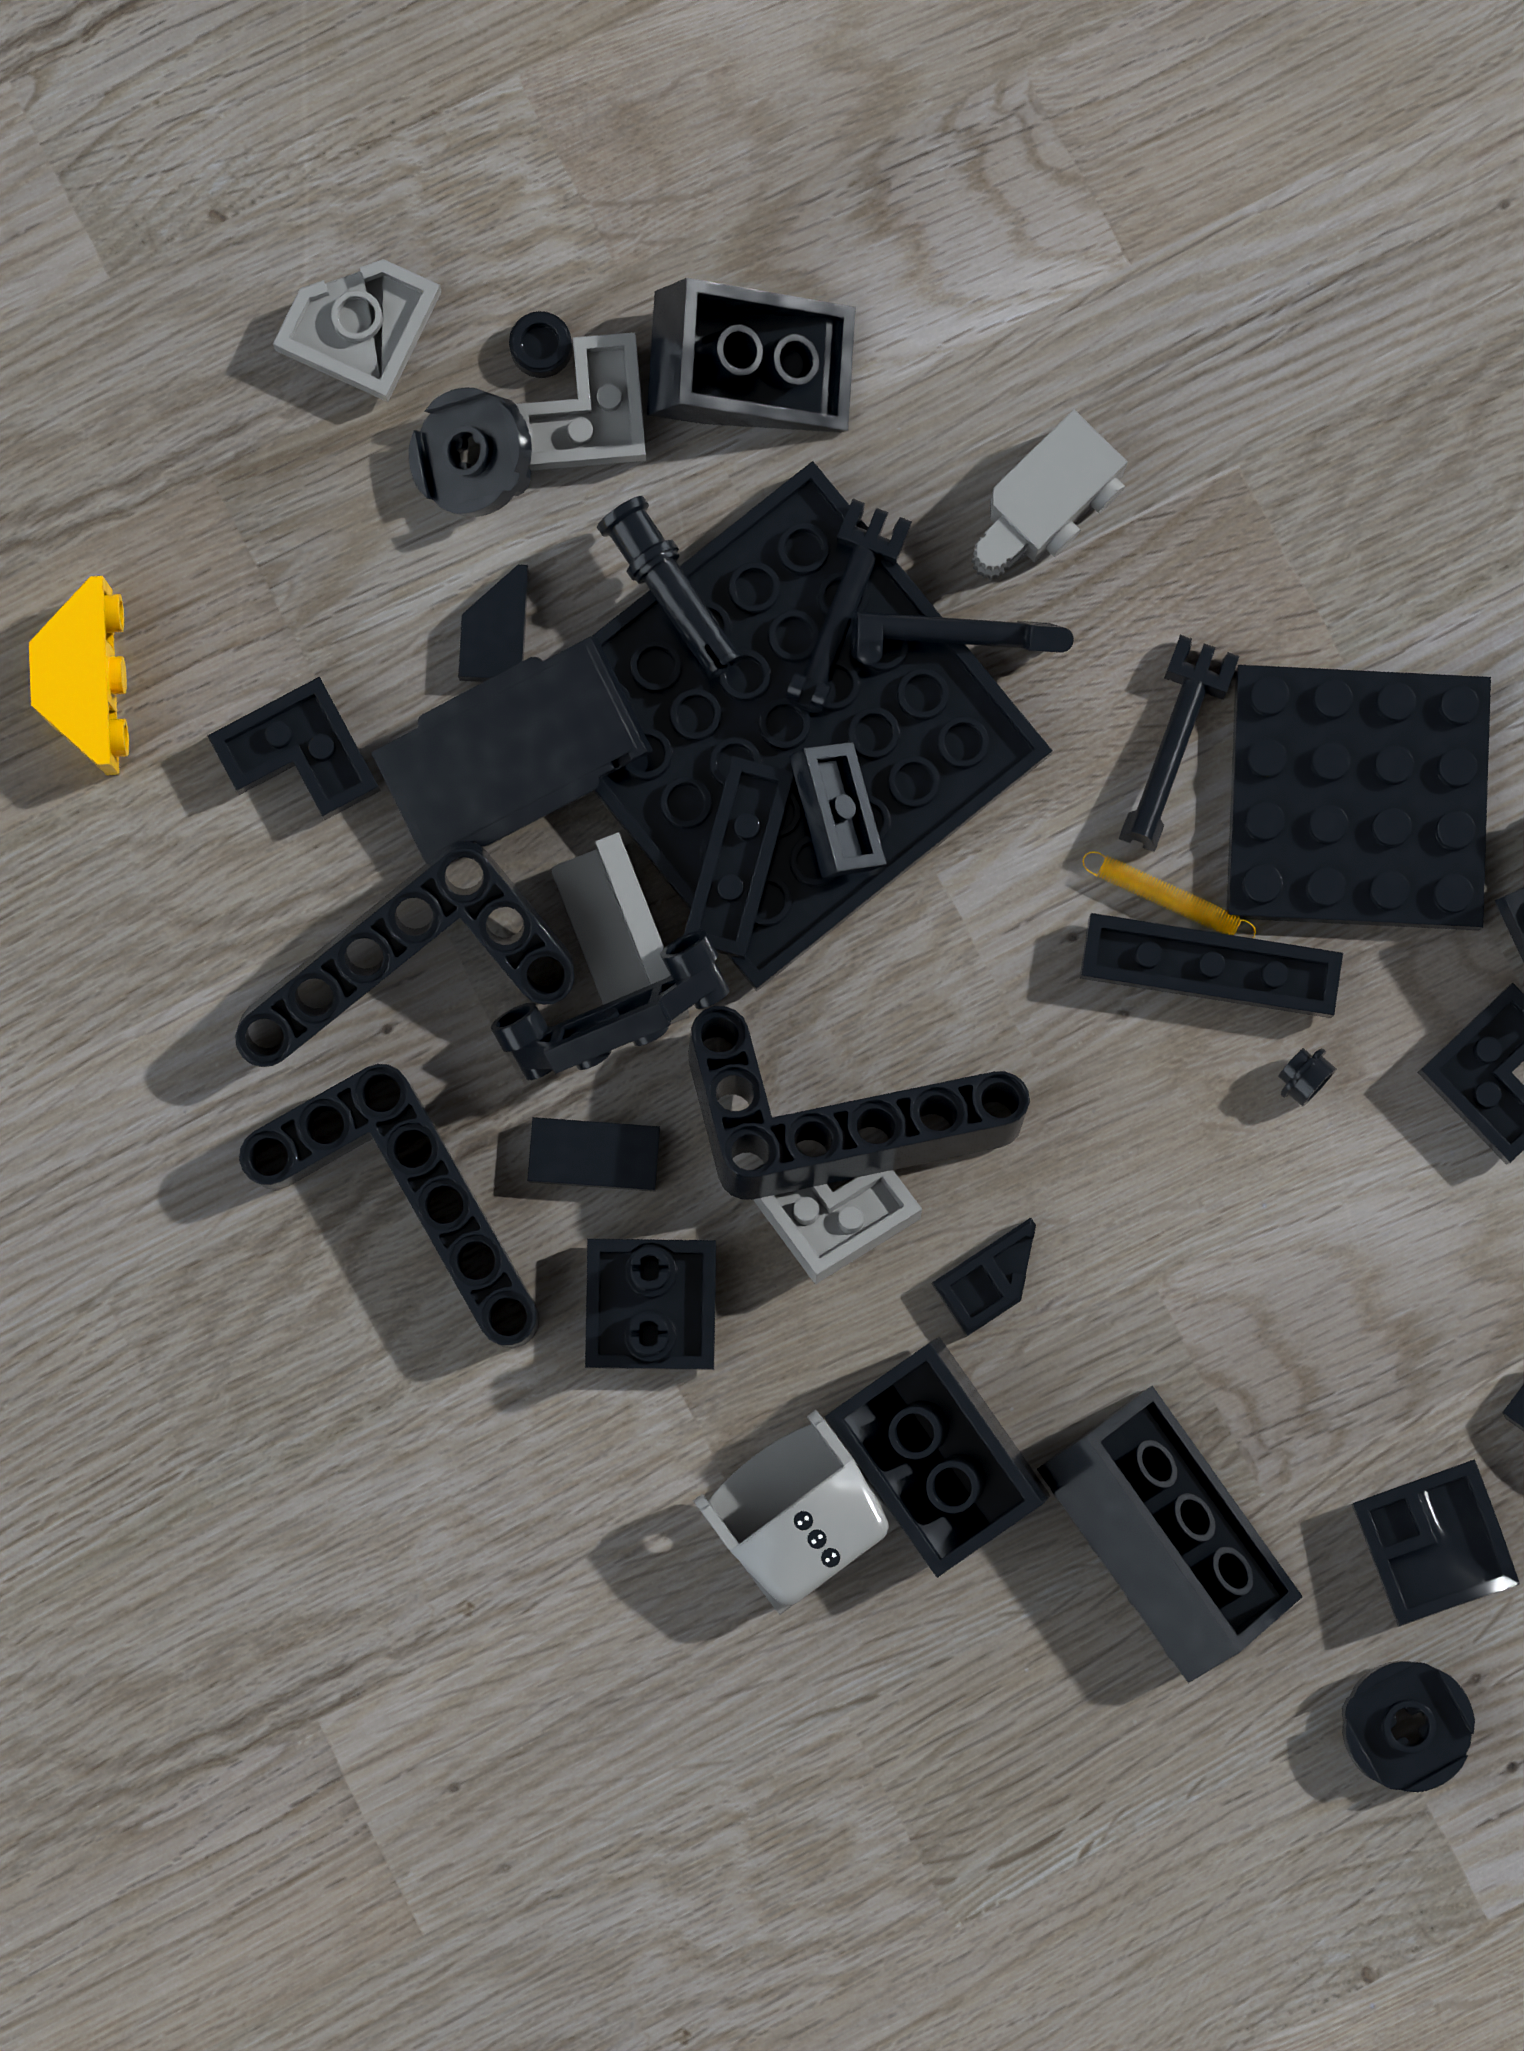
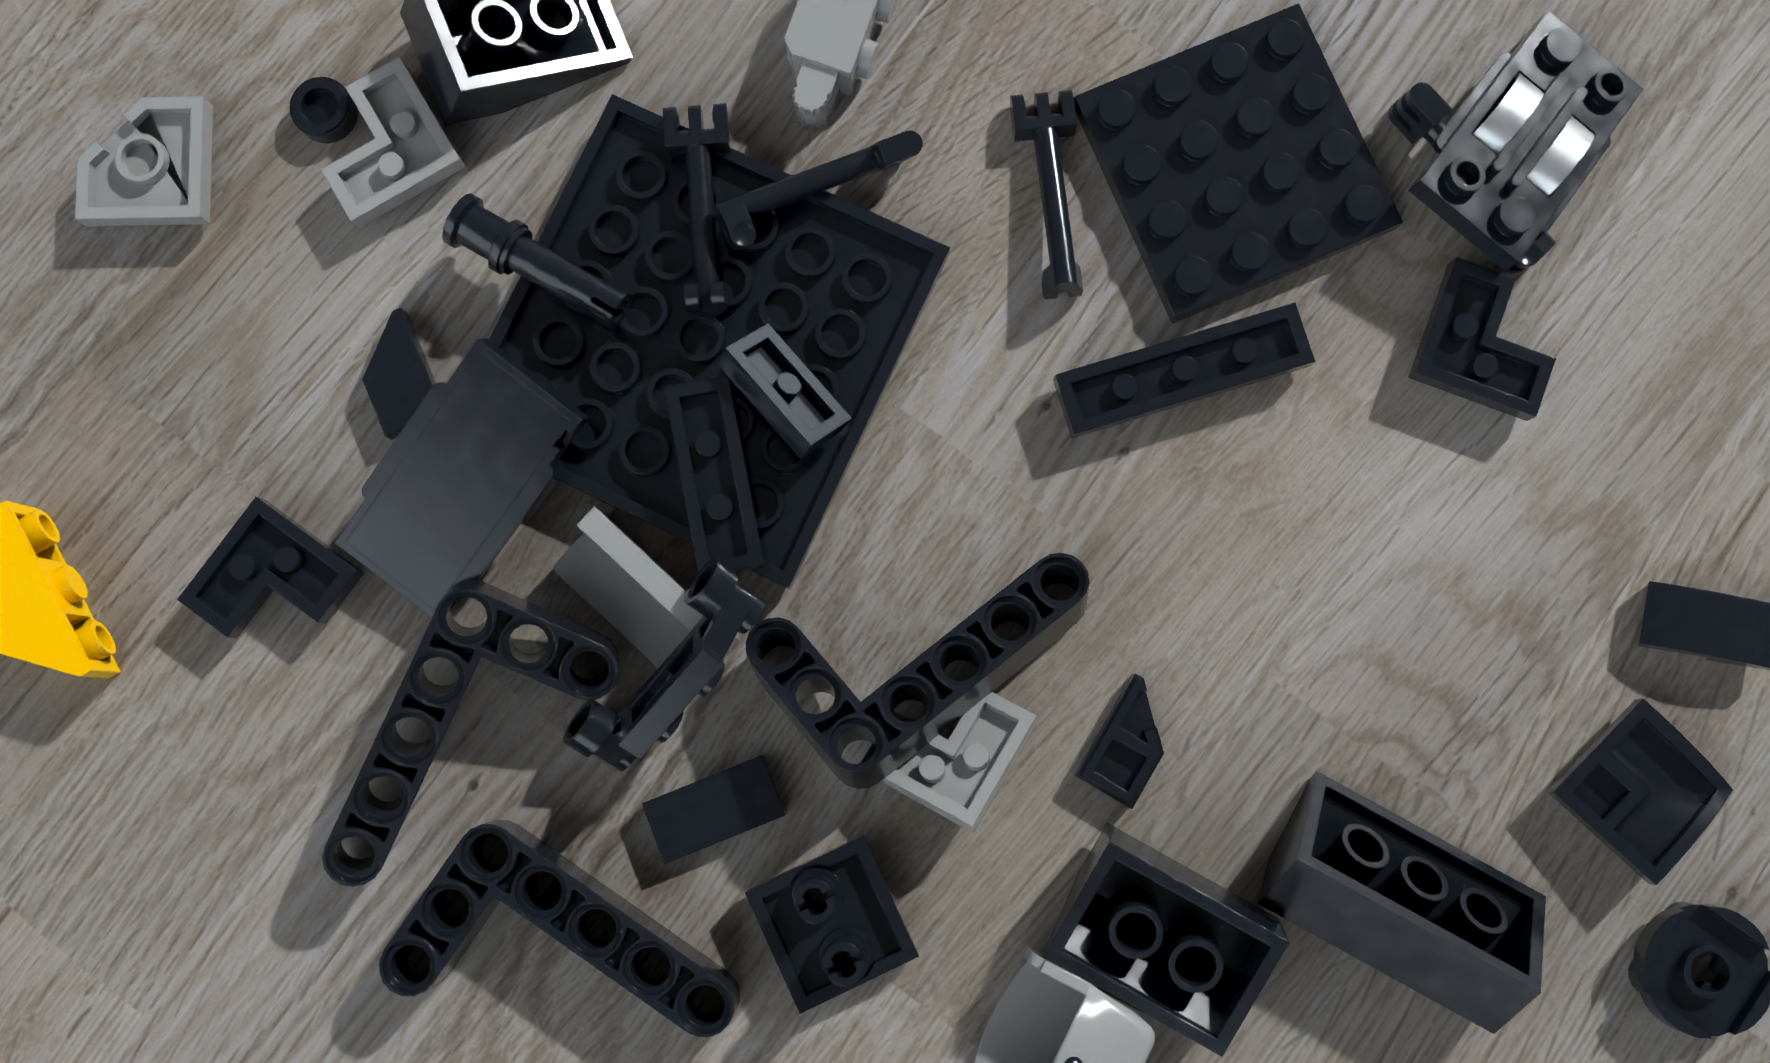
camera: 25 degrees left, 0 degrees up
(503, 459) = (330, 221): black plate -> none
(1168, 899) = (1095, 324): yellow piece -> none
(1306, 1075) = (1315, 427): black plate -> none

